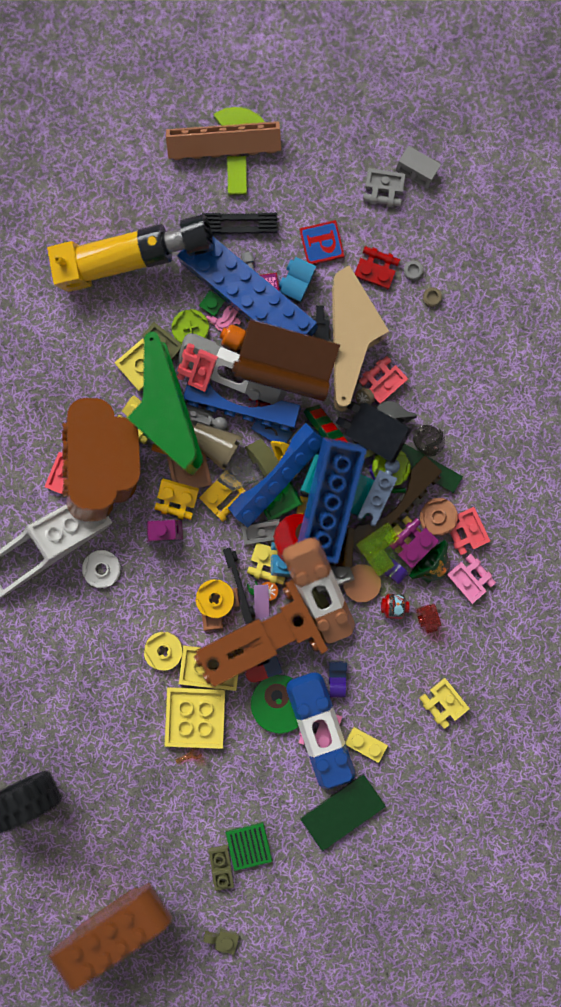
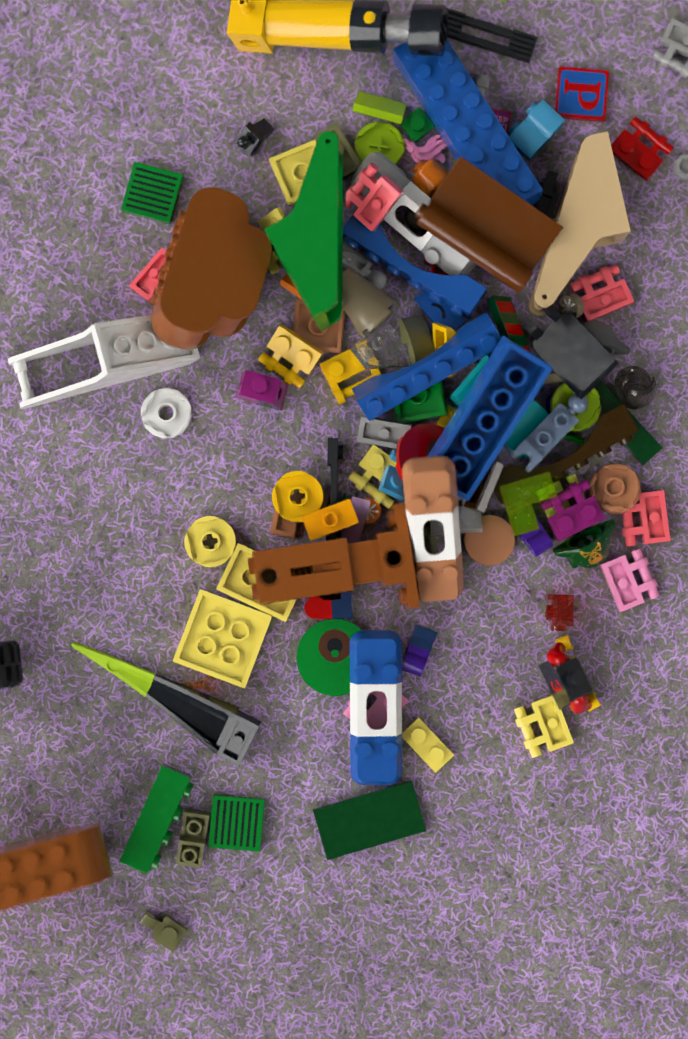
camera: 15 degrees right, 0 degrees up
(39, 414) = (152, 193): none -> green tile
(97, 350) = (253, 136): none -> black piece
(182, 299) = (379, 107): none -> lime tile
(190, 863) = (155, 819): none -> green brick
(202, 778) = (209, 719): none -> black plate
(243, 608) = (330, 519): none -> light orange plate
(394, 606) = (521, 582): head -> none
(450, 664) = (567, 678): none -> black torso

